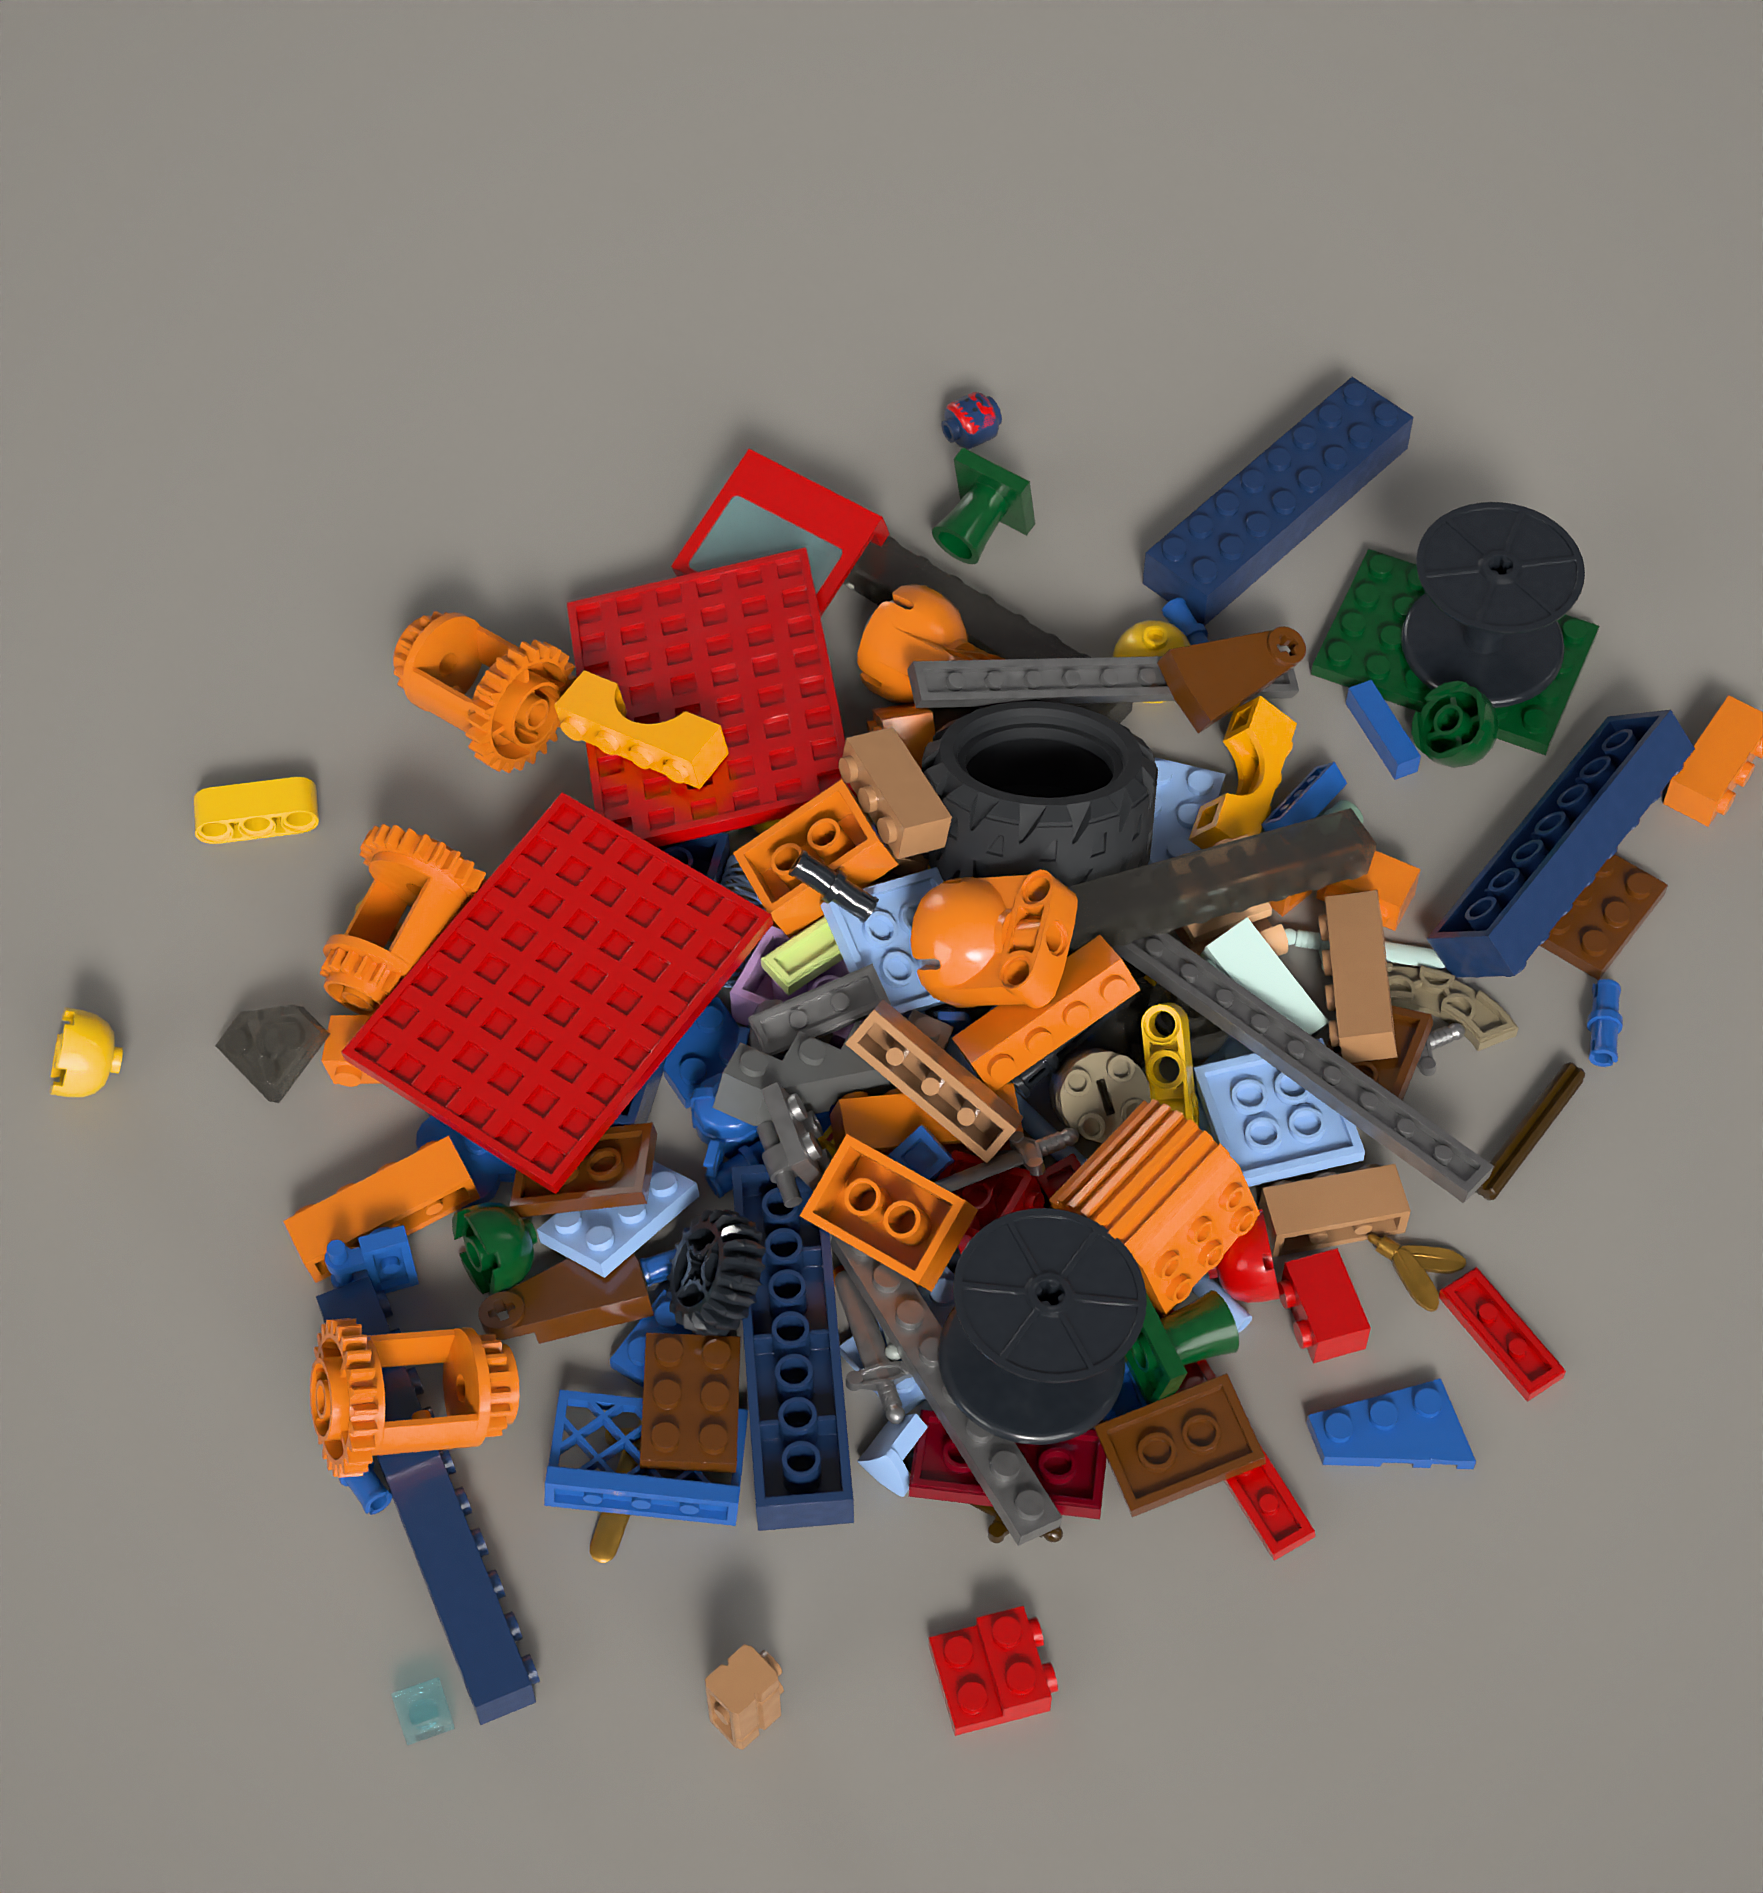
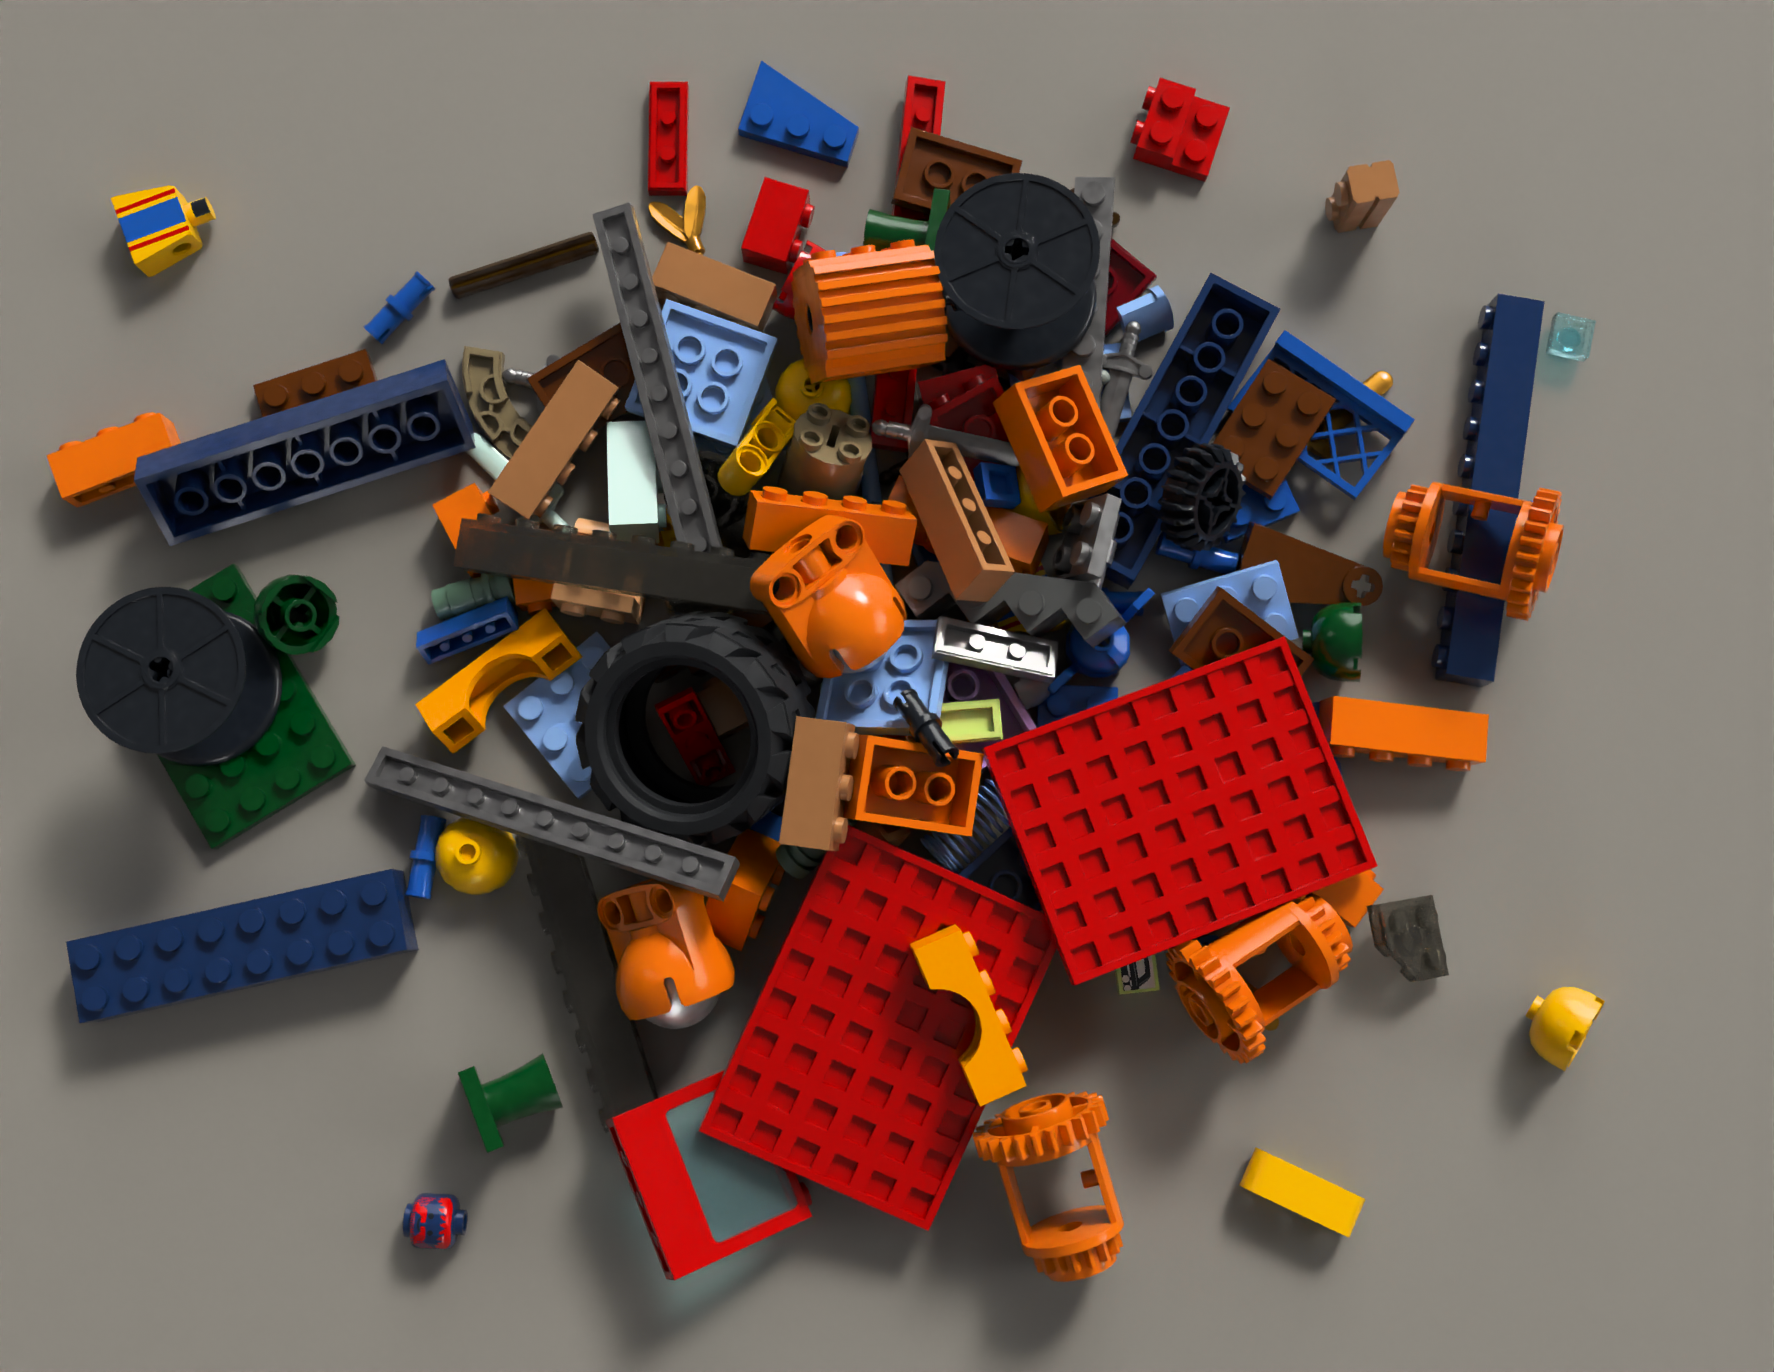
camera: 150 degrees left, 25 degrees up
(381, 1256) = (1430, 677): blue plate -> none
(1225, 673) = (441, 773): reddish brown piece -> none
(1383, 729) = (346, 666): blue piece -> none

